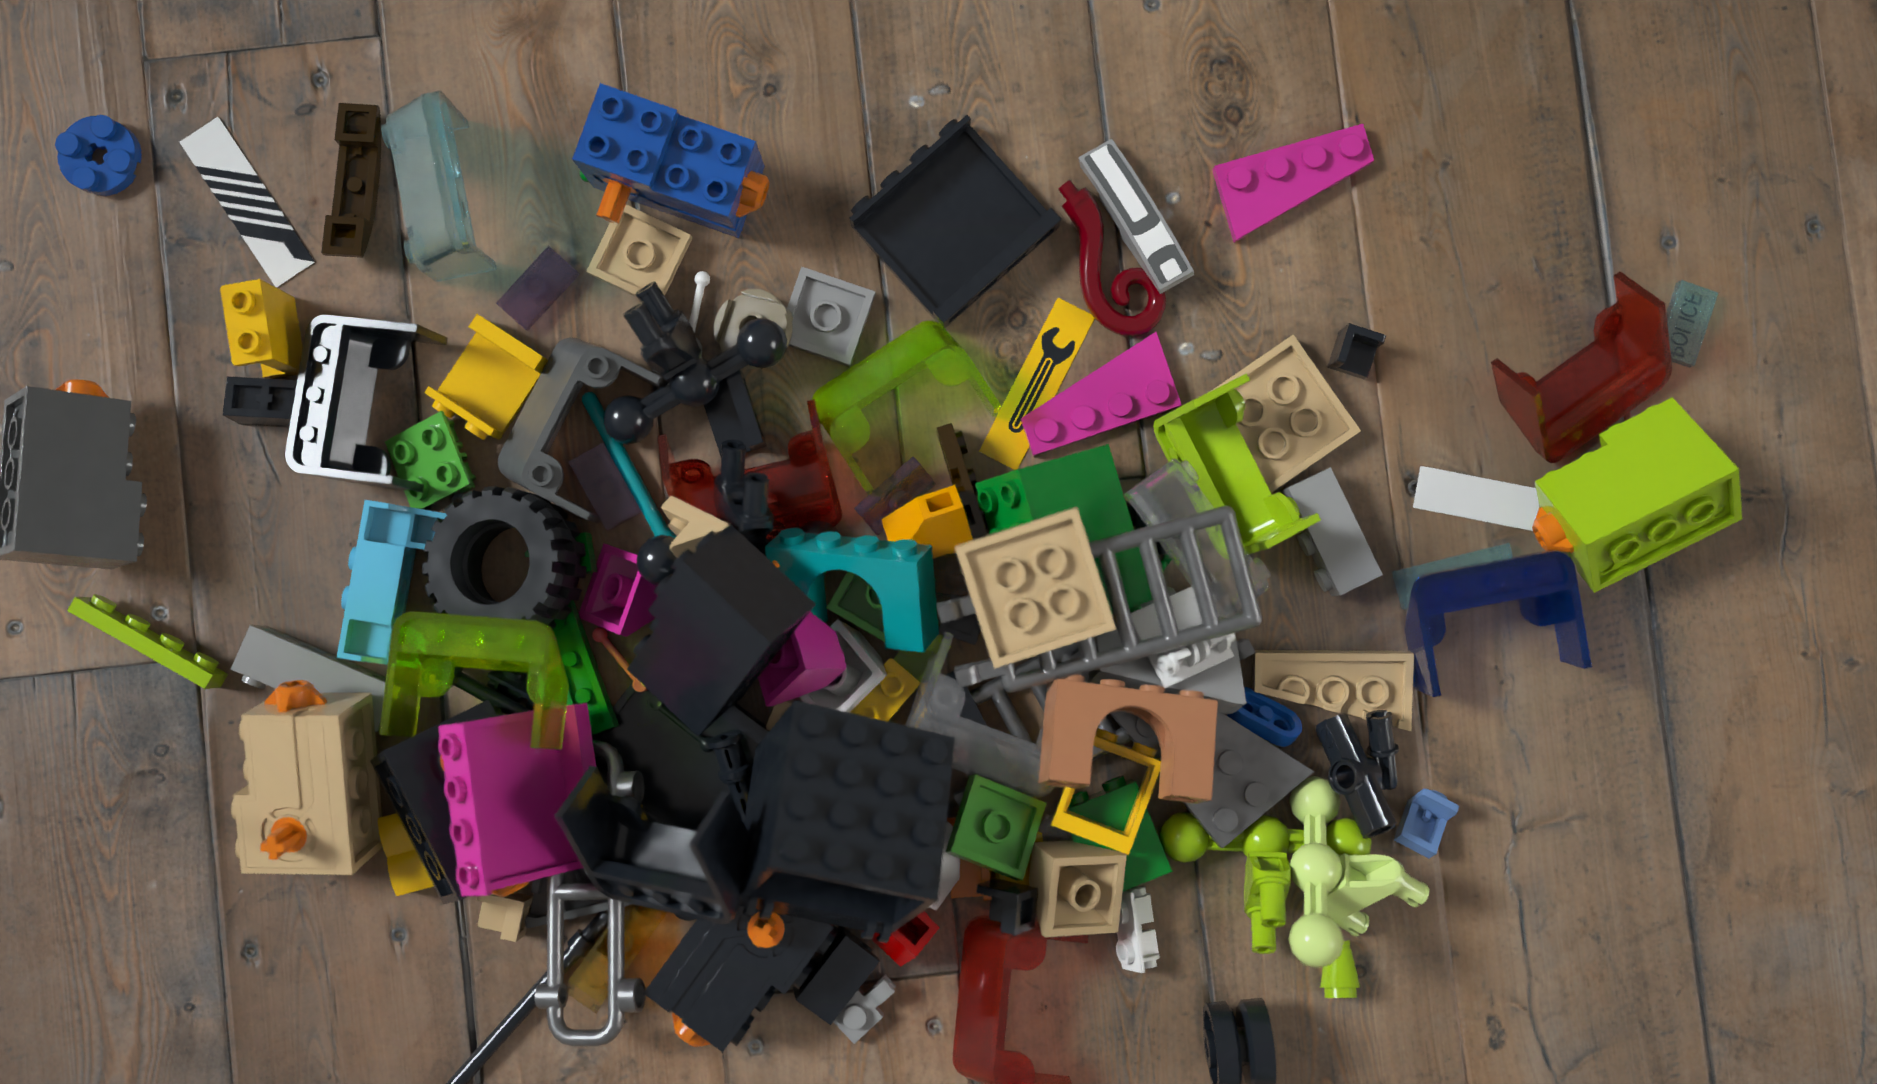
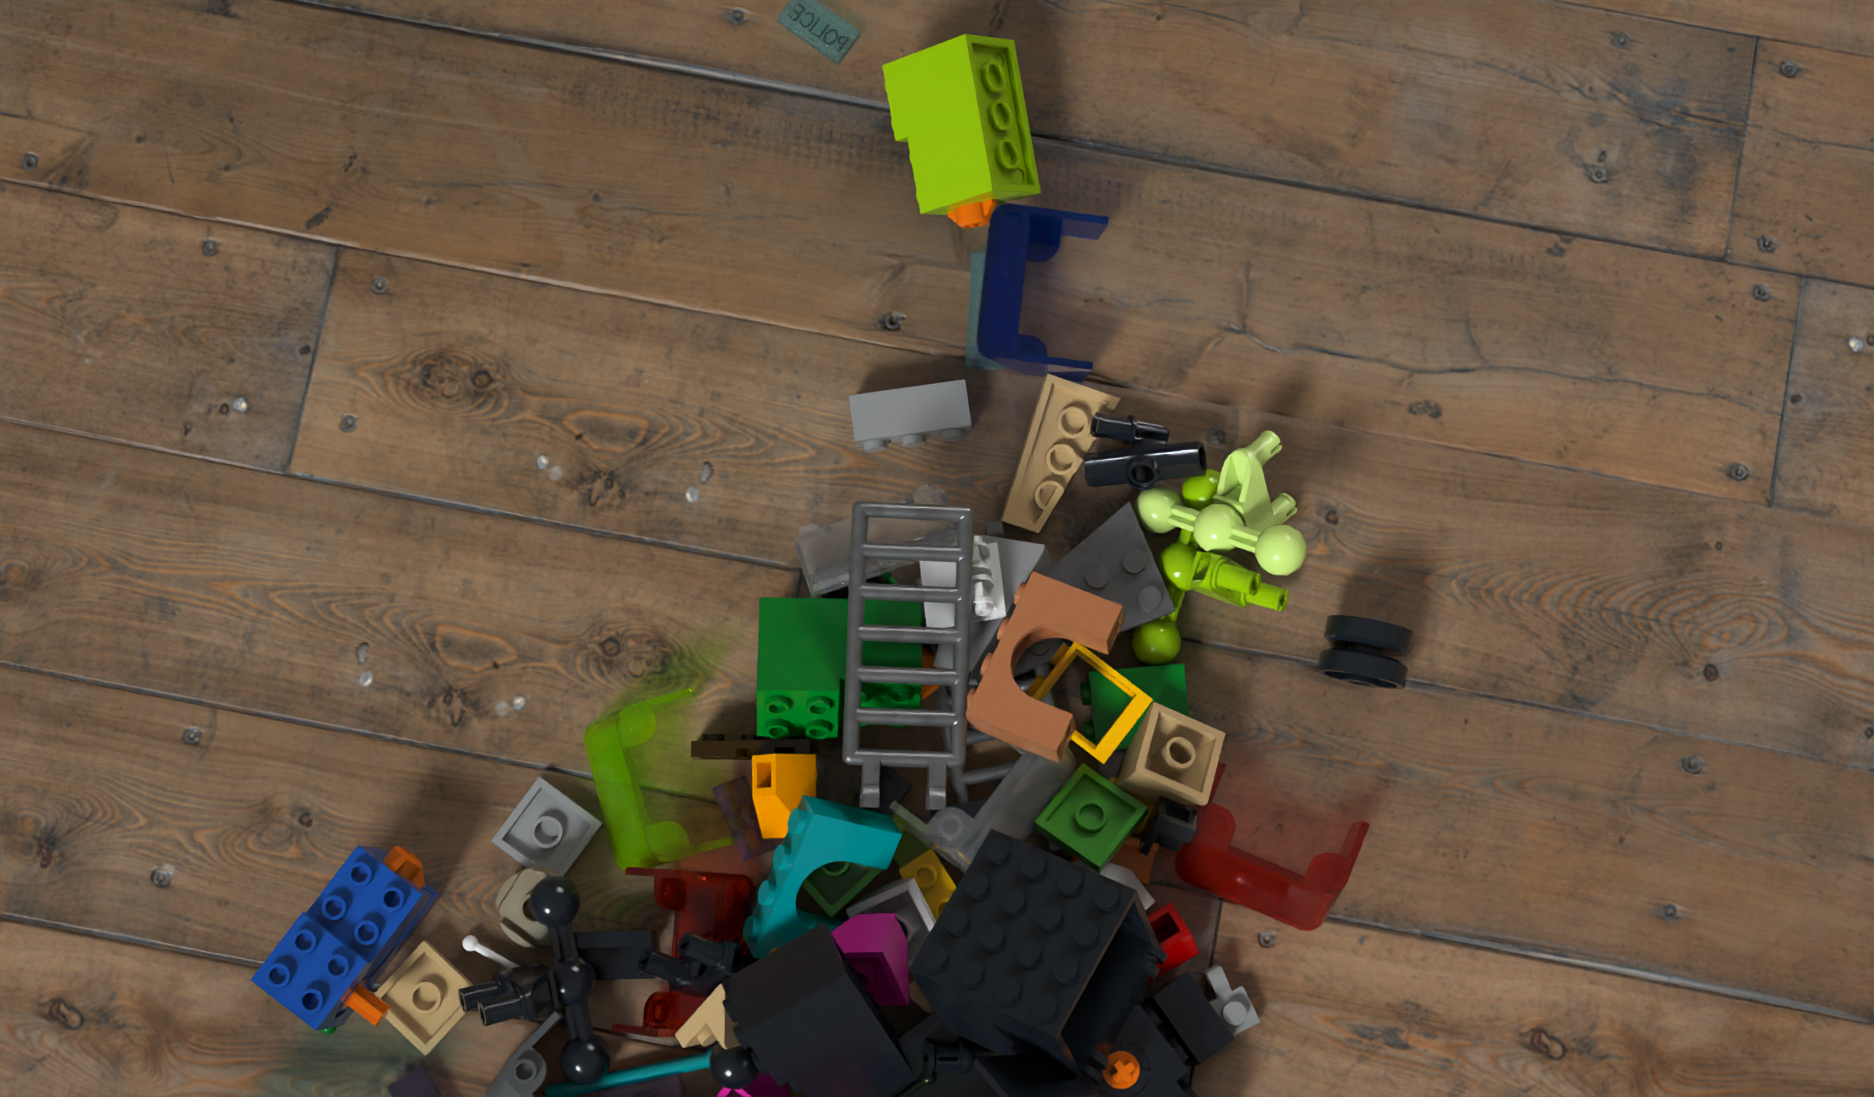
camera: 70 degrees left, 5 degrees down
(952, 222) = (496, 680): black panel -> none
(1035, 587) = (872, 708): tan plate -> none
(1037, 381) = (679, 647): yellow sticker -> none
(1089, 223) = (539, 549): dark red plant -> none
(1112, 396) = (715, 581): dark pink wing -> none
(1136, 216) = (549, 502): slope -> none
(1136, 948) = (1247, 721): white hinge -> none
(1211, 442) = (789, 499): lime windscreen -> none
(1268, 719) = (1068, 528): blue plate -> none
(1275, 181) = (559, 354): dark pink wing -> none
(1290, 413) = (784, 429): tan plate -> none
(1341, 977) = (1326, 536): lime cone -> none
(1355, 350) = (745, 337): black panel -> none
(1425, 821) = (1208, 412): medium blue bracket -> none
(1476, 498) = (920, 269): white sticker -> none
(1597, 383) = (848, 126): clear red windscreen -> none

